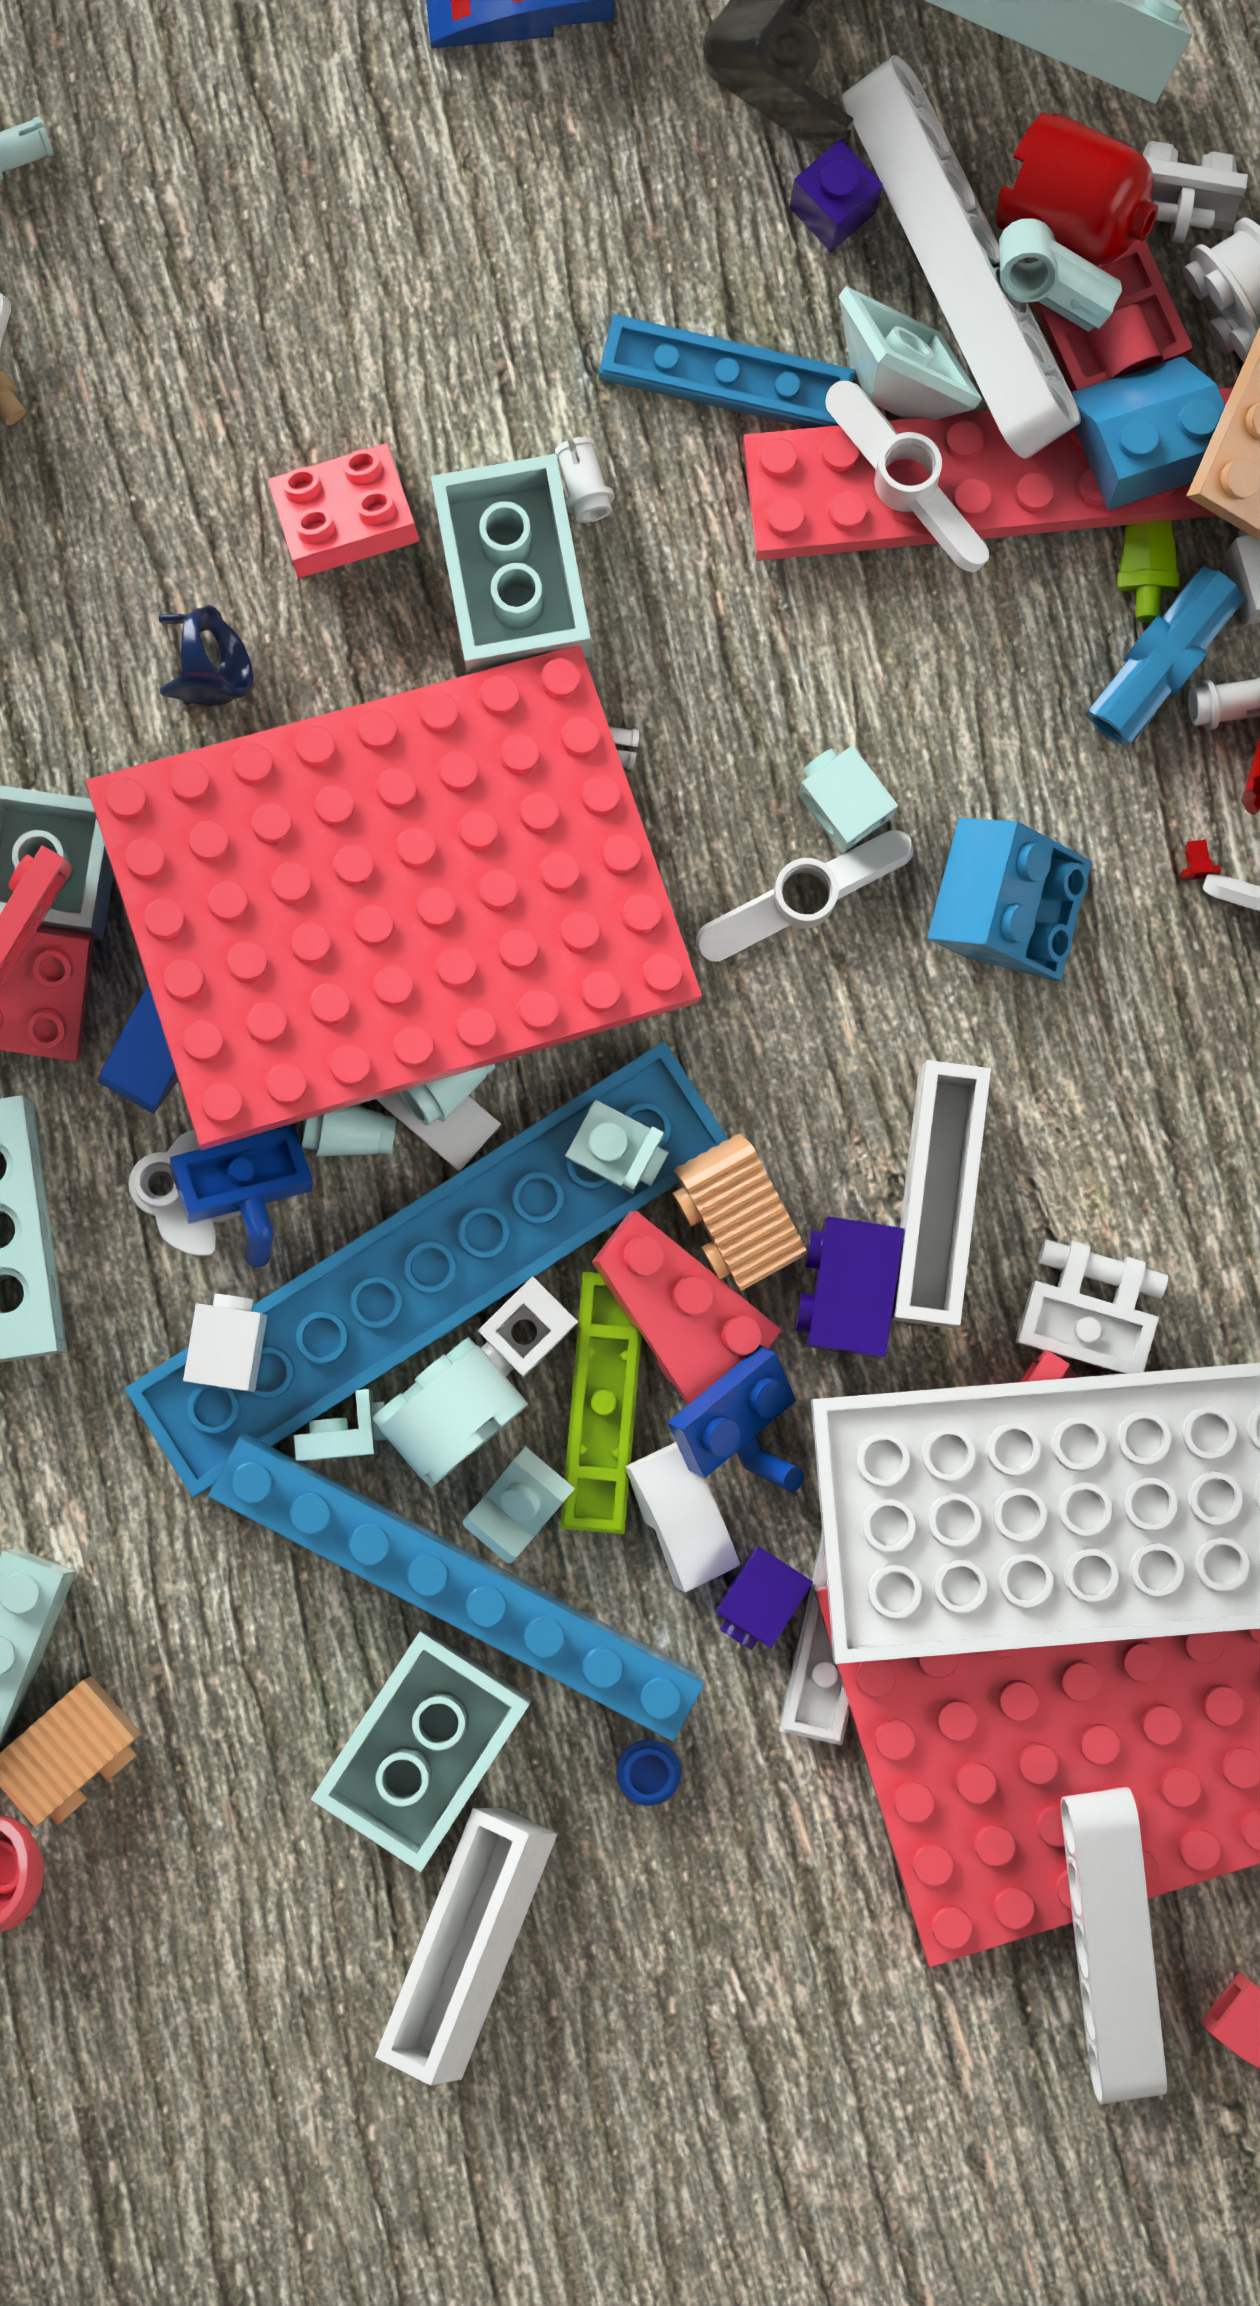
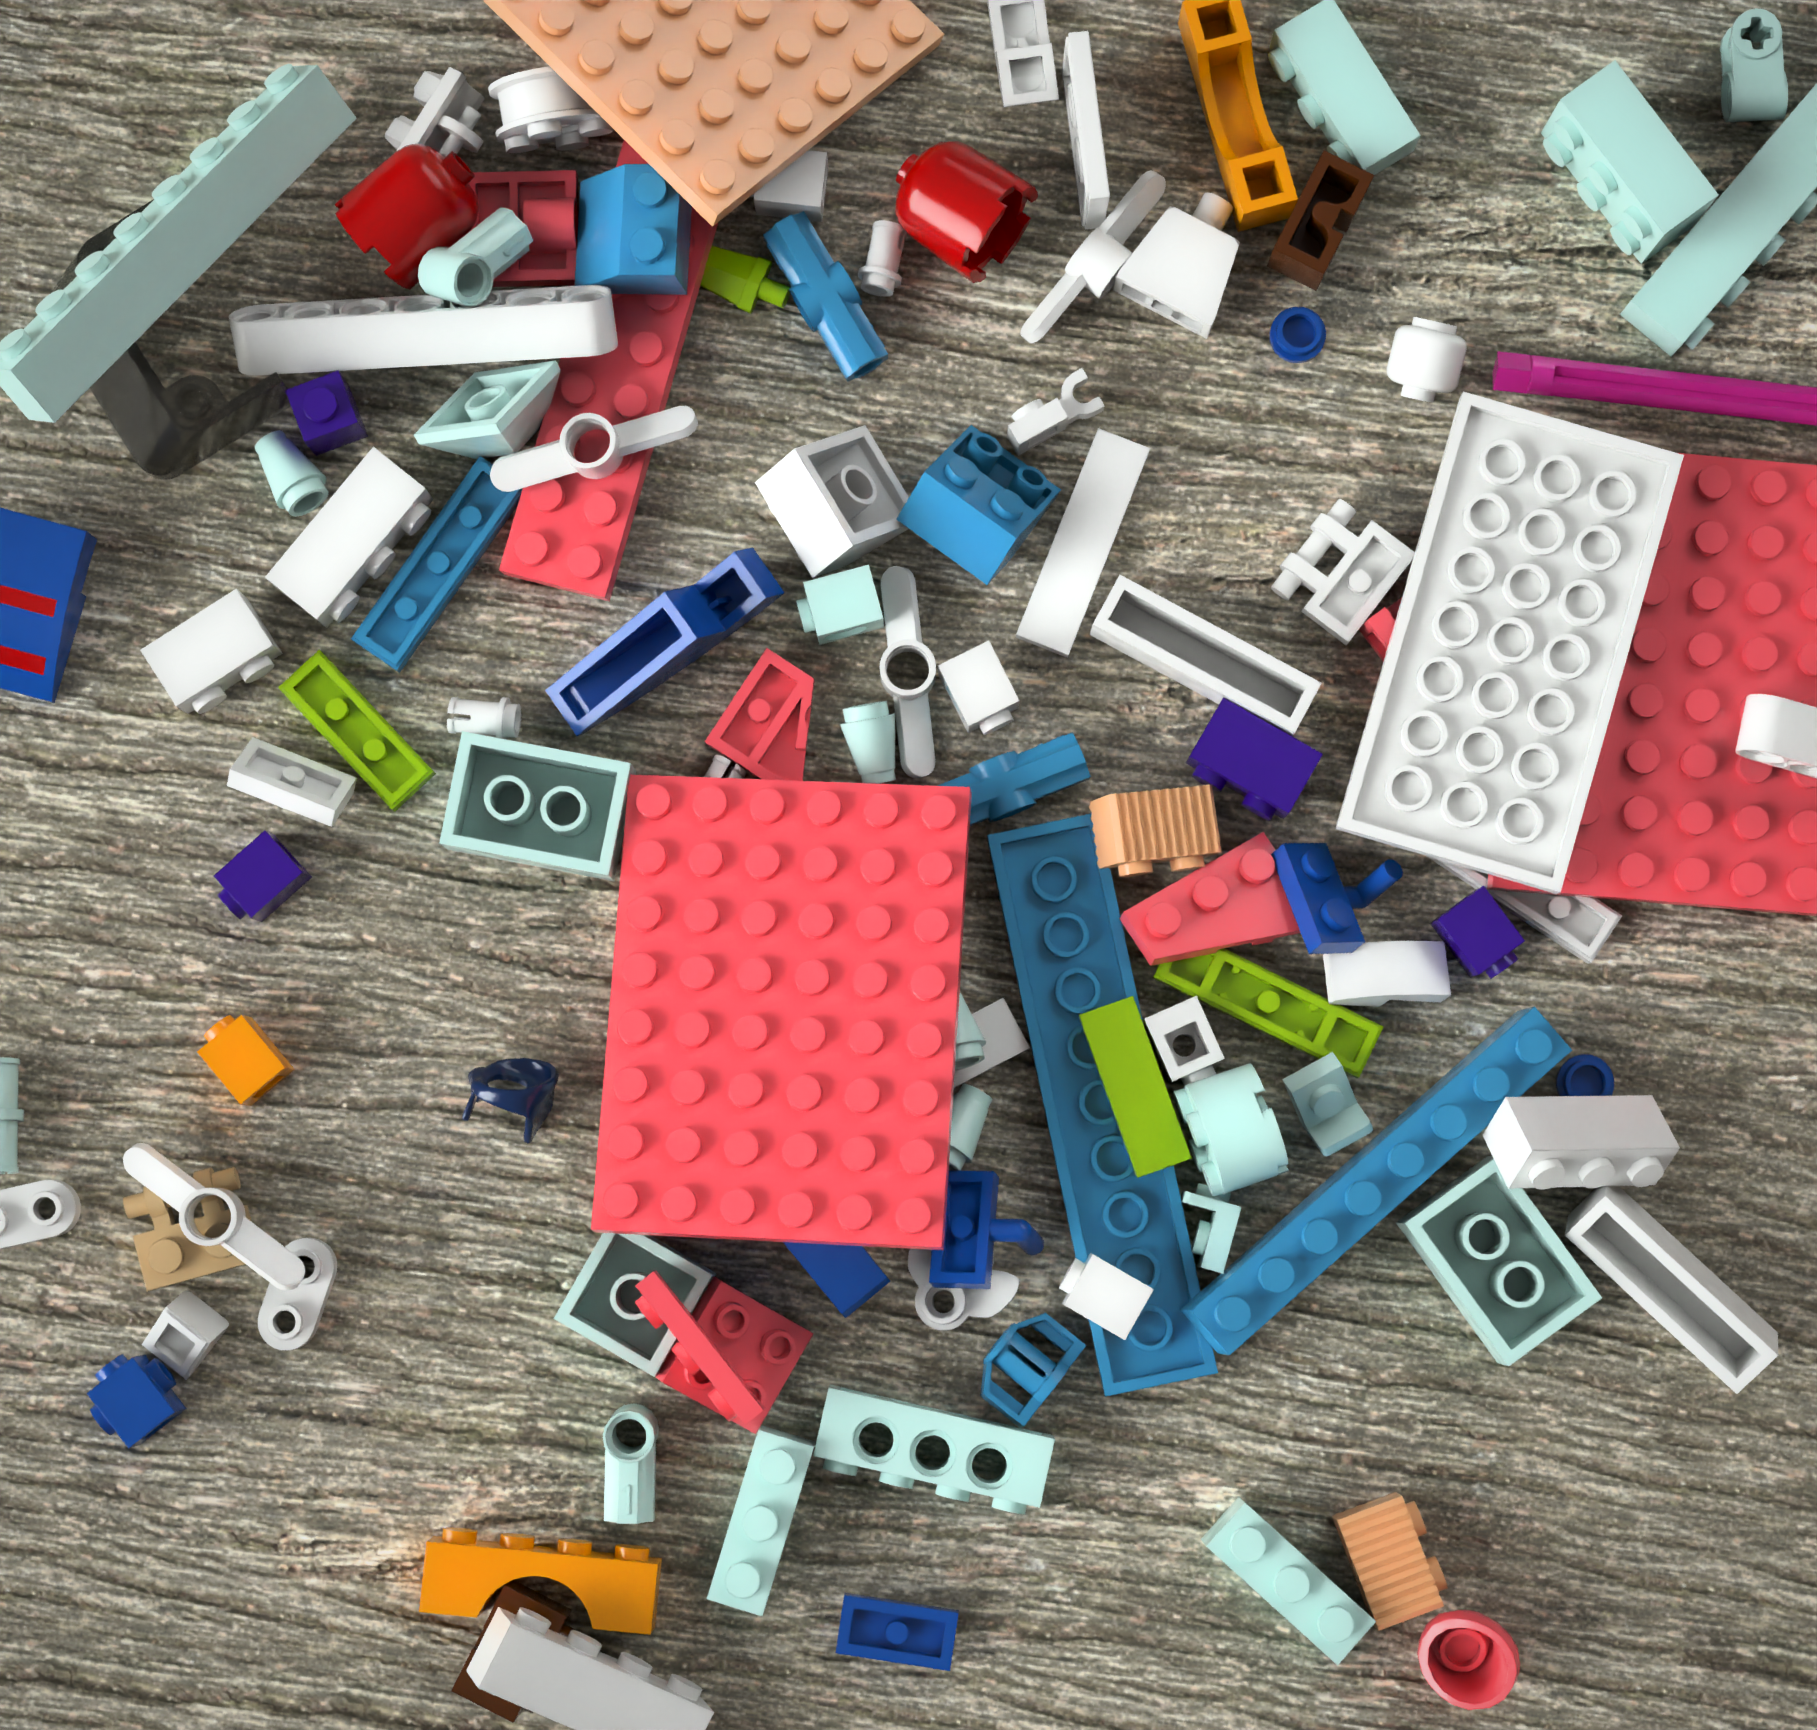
camera: 60 degrees left, 0 degrees up
(130, 1321) = (1028, 1366): none -> dark azure piece
(138, 375) = (244, 1058): none -> light orange brick
(330, 319) = (260, 878): none -> dark purple brick
(343, 510) = (432, 929): coral plate -> none
(441, 311) = (291, 781): none -> white plate
(457, 1294) = (1134, 1087): none -> lime tile
(521, 358) = (357, 730): none -> lime tile
(542, 179) = (212, 653): none -> white brick
(578, 1787) = (1580, 1141): none -> white brick
(617, 1148) = (1064, 906): light aqua bracket -> none
(694, 770) = (768, 721): none -> coral wing
(715, 271) = (351, 538): none -> white brick
(716, 884) = (871, 740): none -> light aqua cone
(733, 1049) = (1015, 781): none -> dark azure piece
(737, 629) = (664, 640): none -> blue slope
(757, 187) = (291, 475): none -> light aqua cone
(814, 974) = (979, 689): none -> white brick
(955, 748) = (835, 499): none -> white slope
(1013, 1024) = (1082, 542): none -> white tile
(1123, 931) = (1039, 422): none -> white plate
(1198, 861) = (1005, 337): red piece -> none

